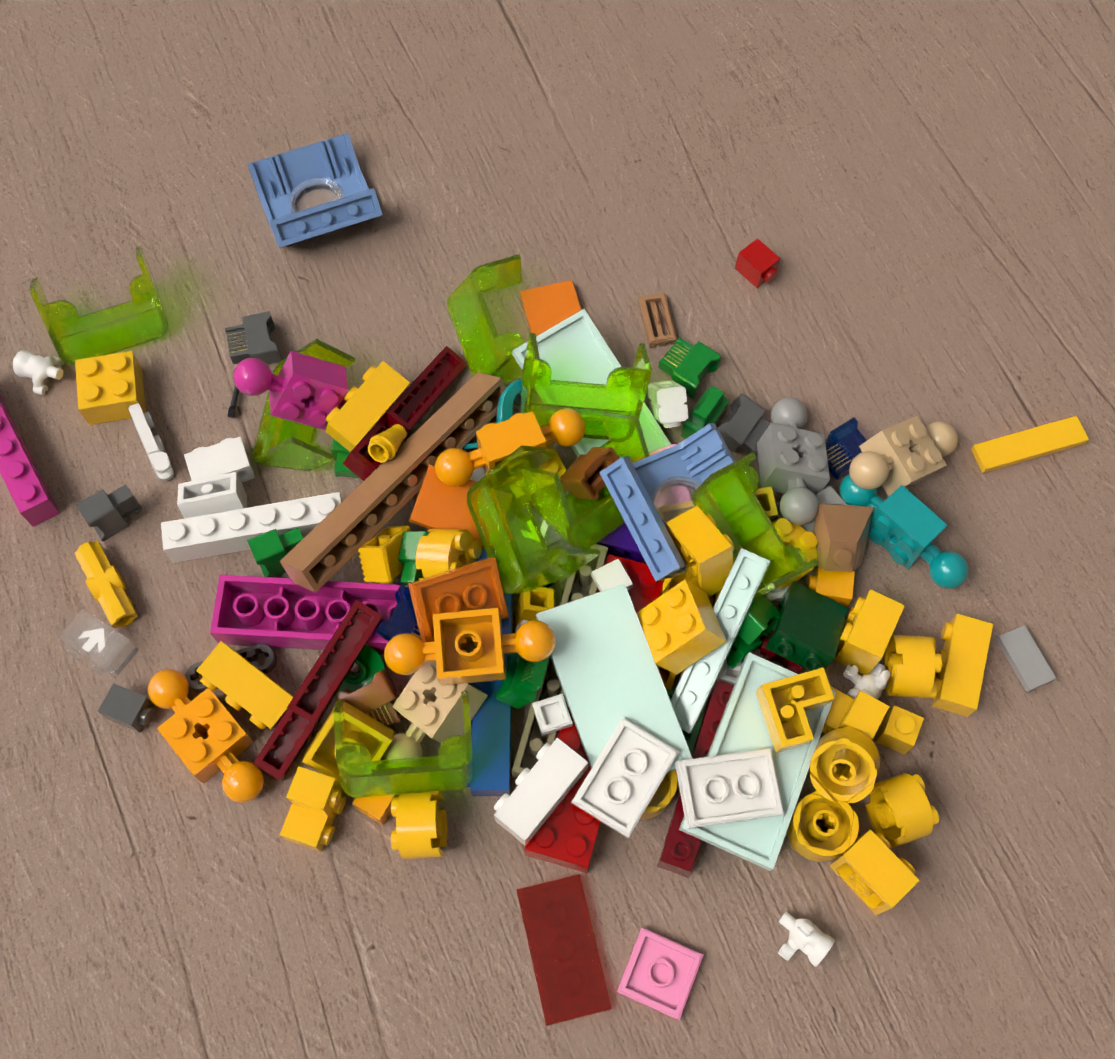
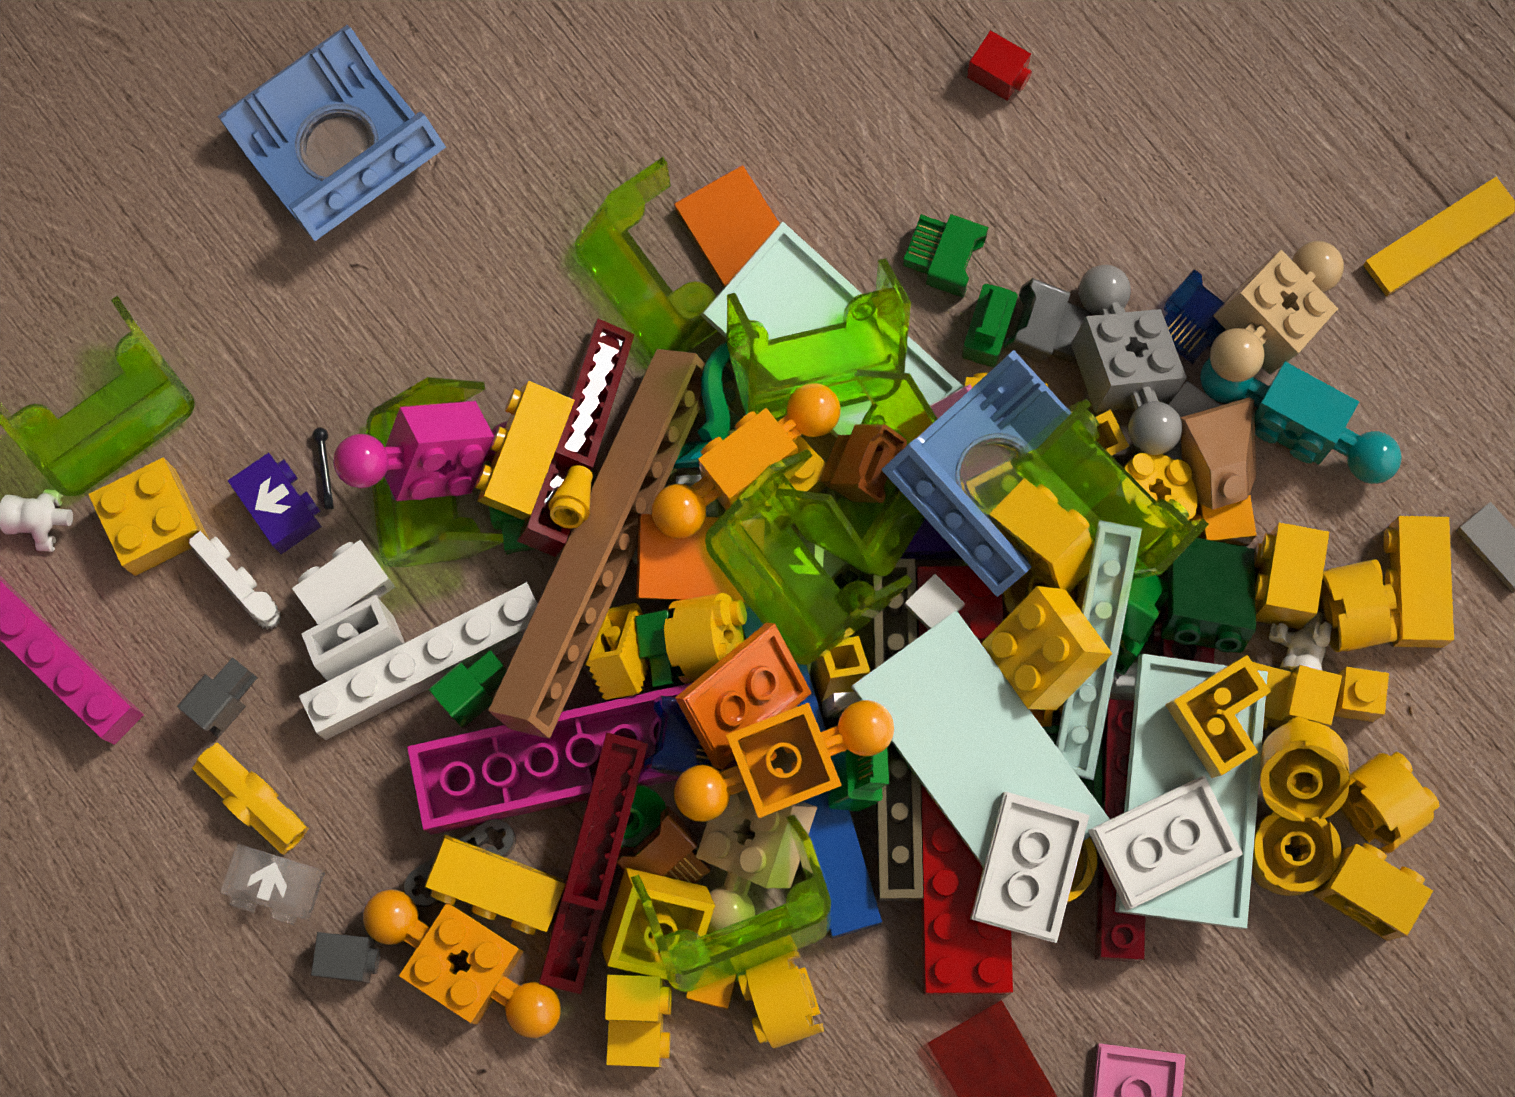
camera: 10 degrees left, 10 degrees up
(195, 402) = (275, 503): none -> dark purple brick
(253, 339) = (322, 388): dark grey piece -> none
(539, 790) = (926, 915): white brick -> none
(552, 714) = (910, 809): white tile -> none
(660, 339) = (895, 221): medium nougat tile -> none
(668, 403) = (937, 323): white brick -> none
(806, 937) = (1309, 996): white piece -> none

